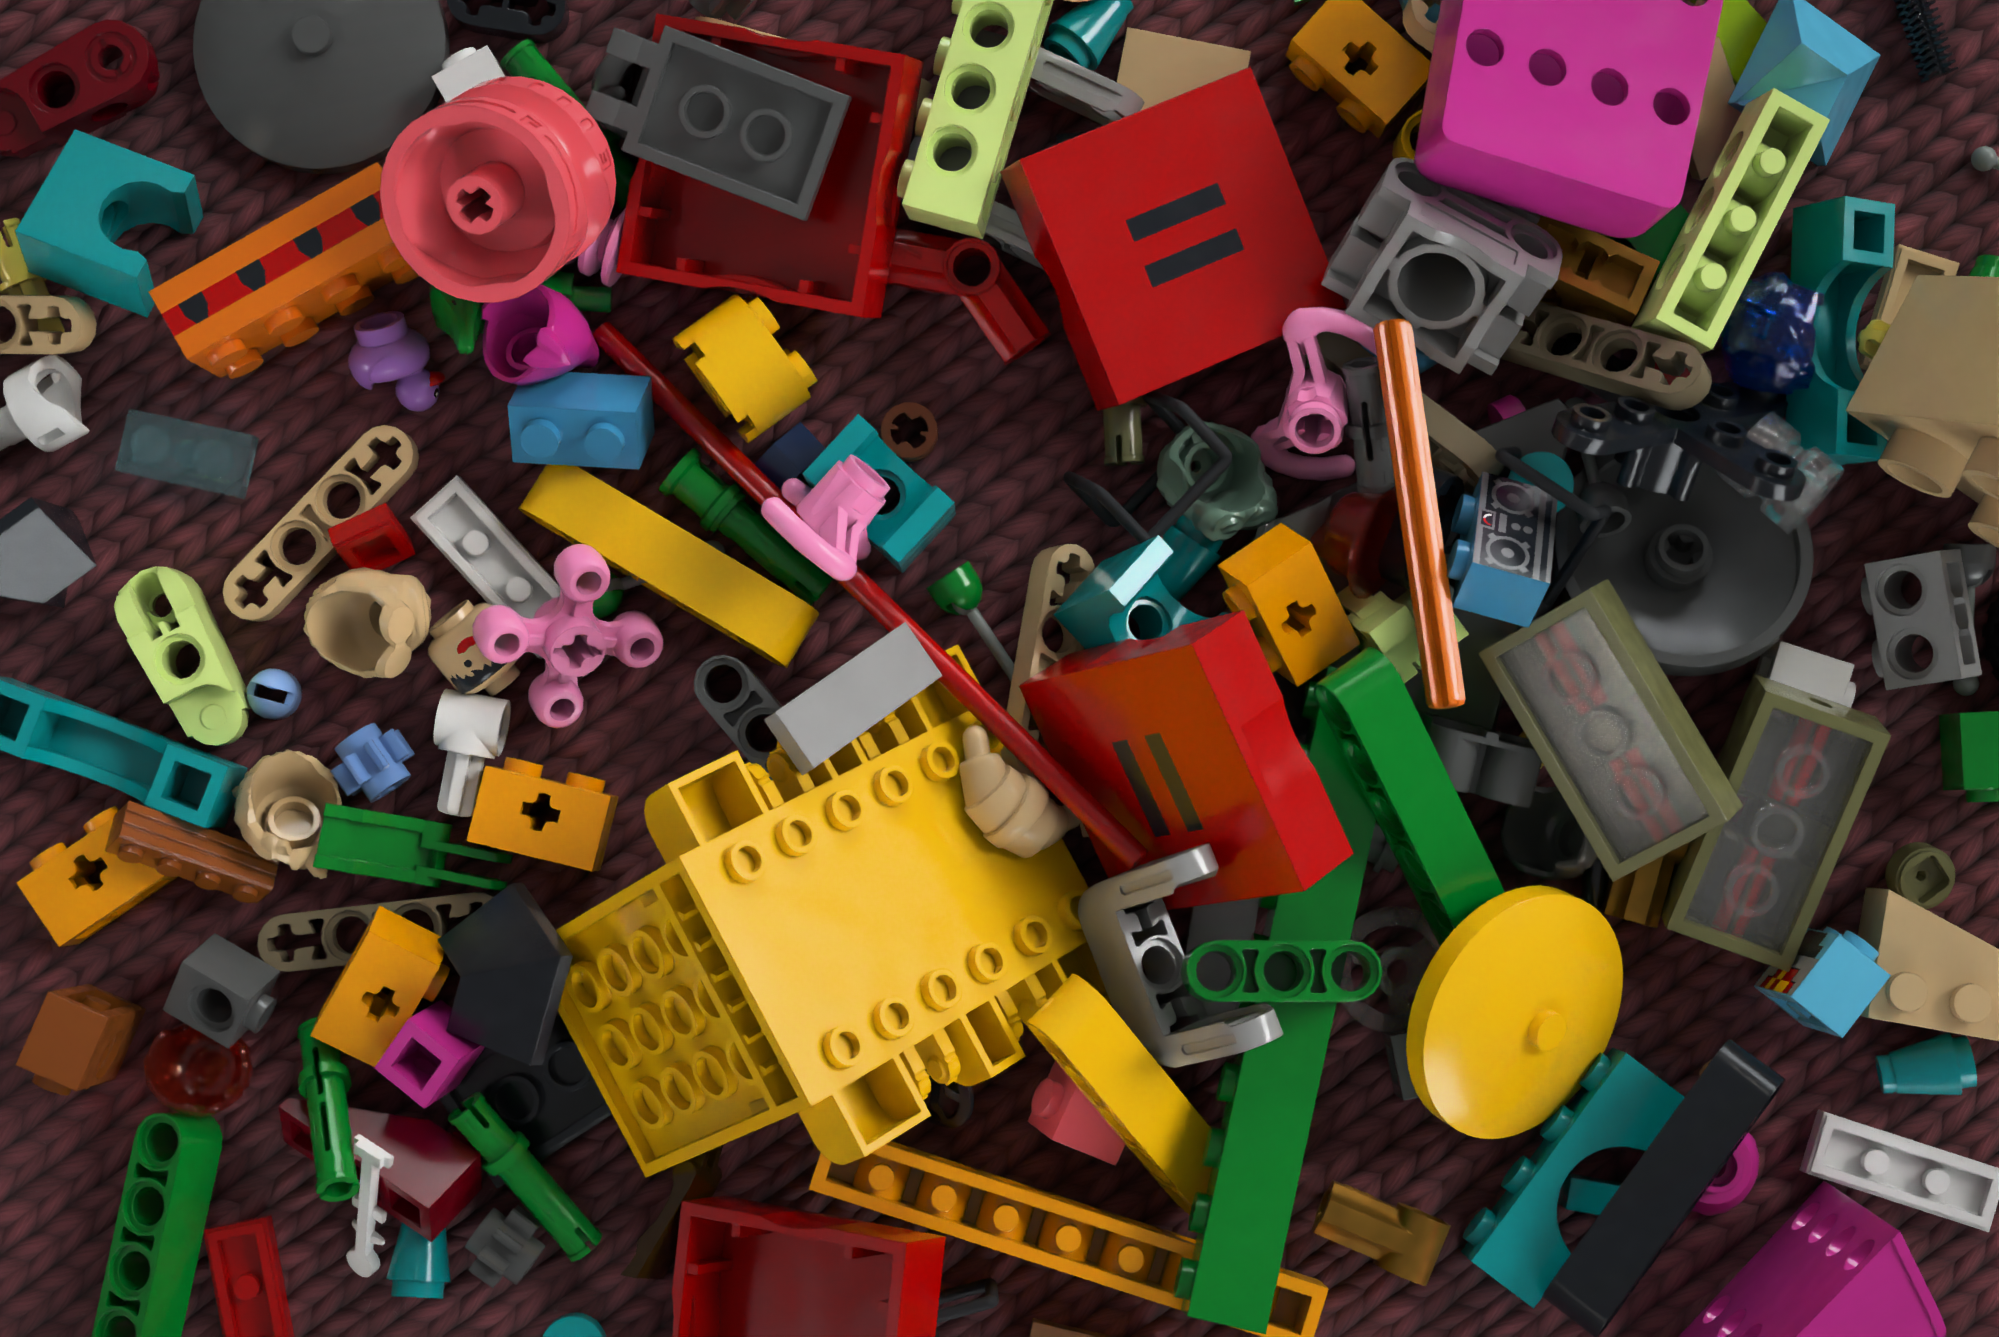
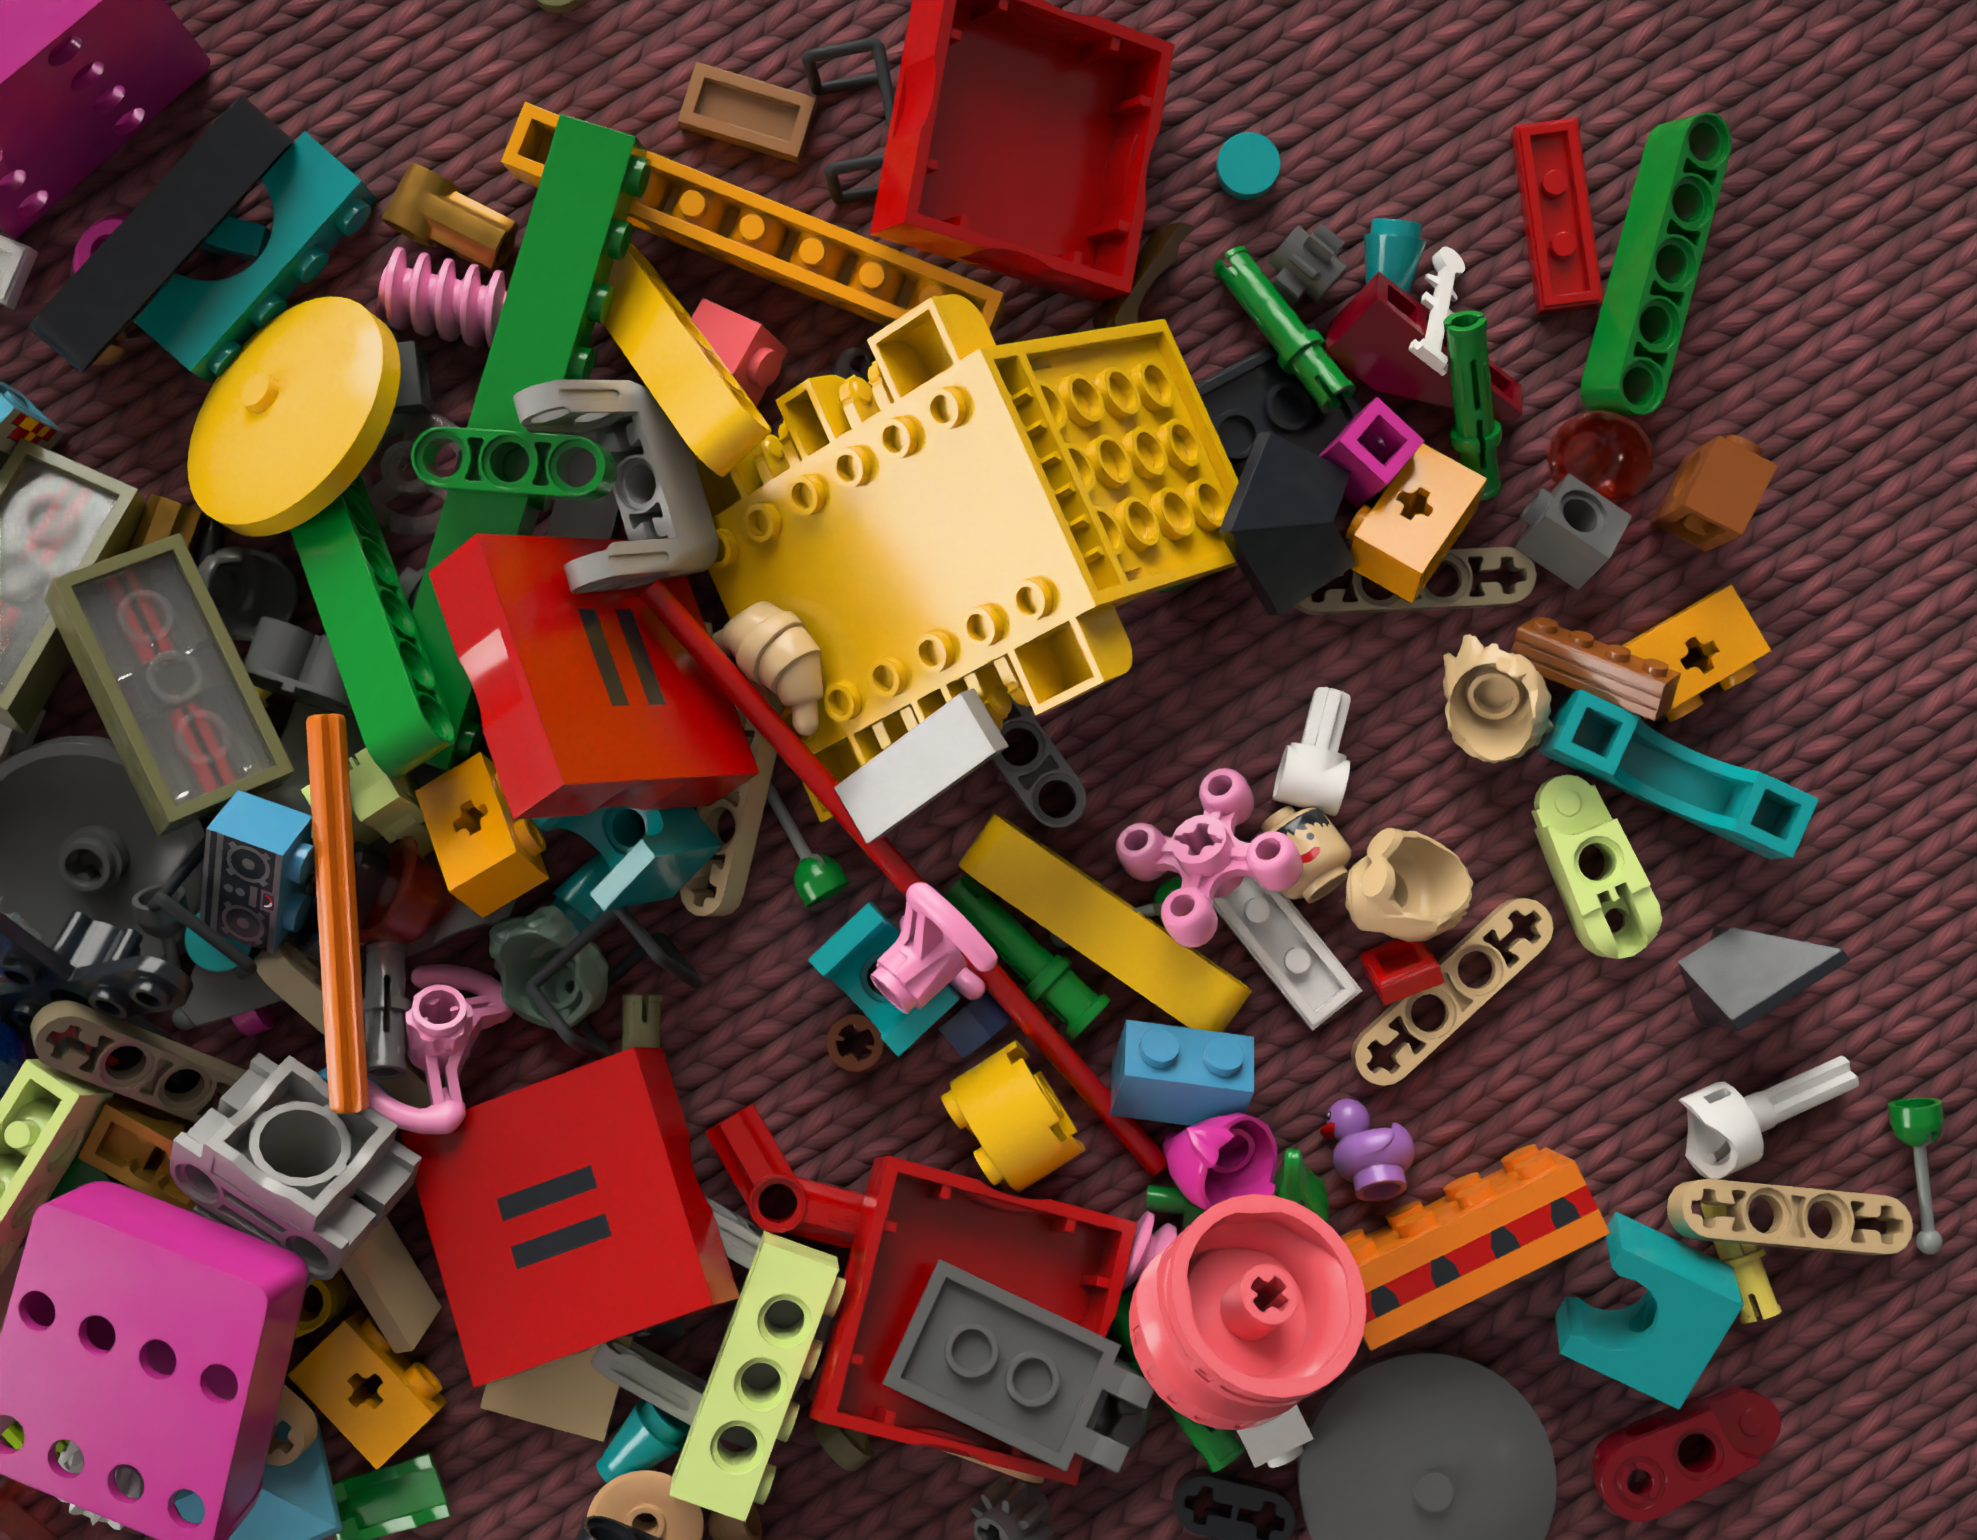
camera: 170 degrees left, 0 degrees up
(187, 453) = (1583, 1071): clear light blue plate -> none
(277, 680) = (1505, 837): light blue hinge -> none
(372, 762) = (1412, 747): medium blue gear -> none
(396, 848) = (1390, 659): green arm -> none
(505, 821) = (1282, 675): light orange brick -> none
(889, 36) = (845, 1446): none -> olive tile
(1341, 155) = (392, 1288): none -> tan tile
(1376, 1146) = (440, 299): none -> bright pink piece

